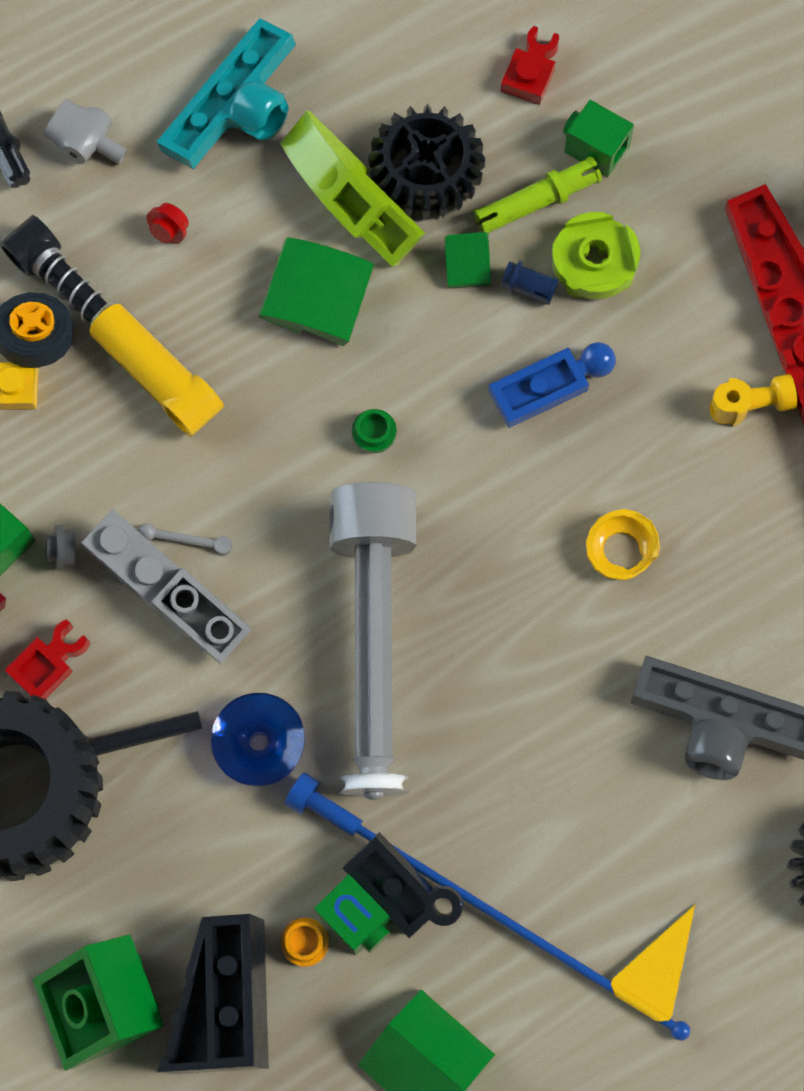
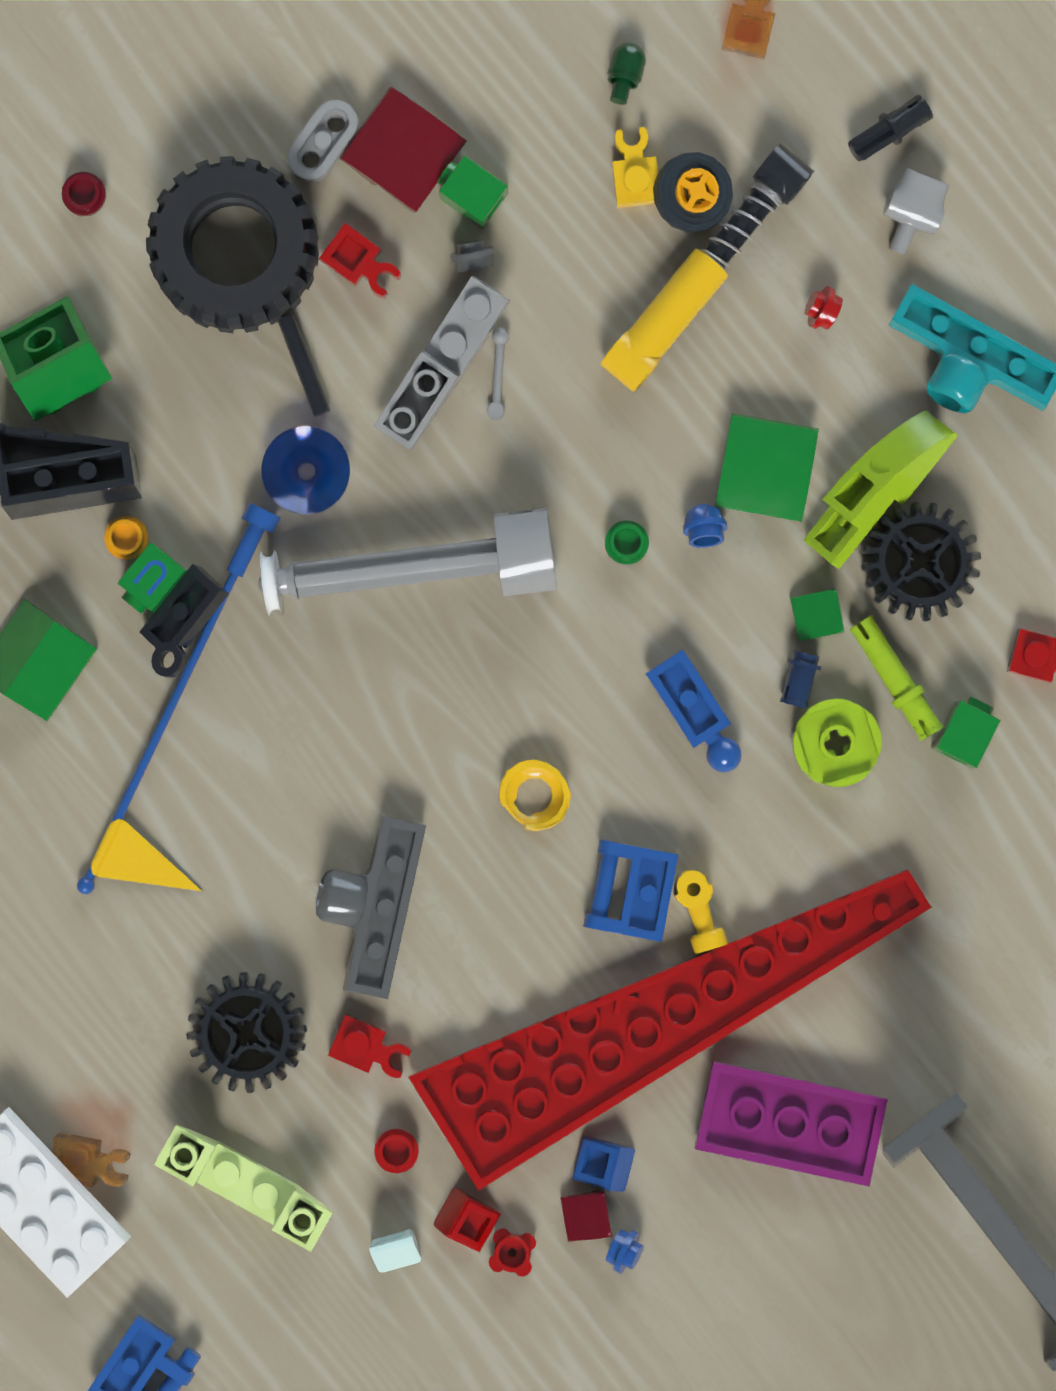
camera: 80 degrees right, 15 degrees up
(367, 353) = (704, 526): none -> blue plate
(733, 448) = (645, 895): none -> blue plate

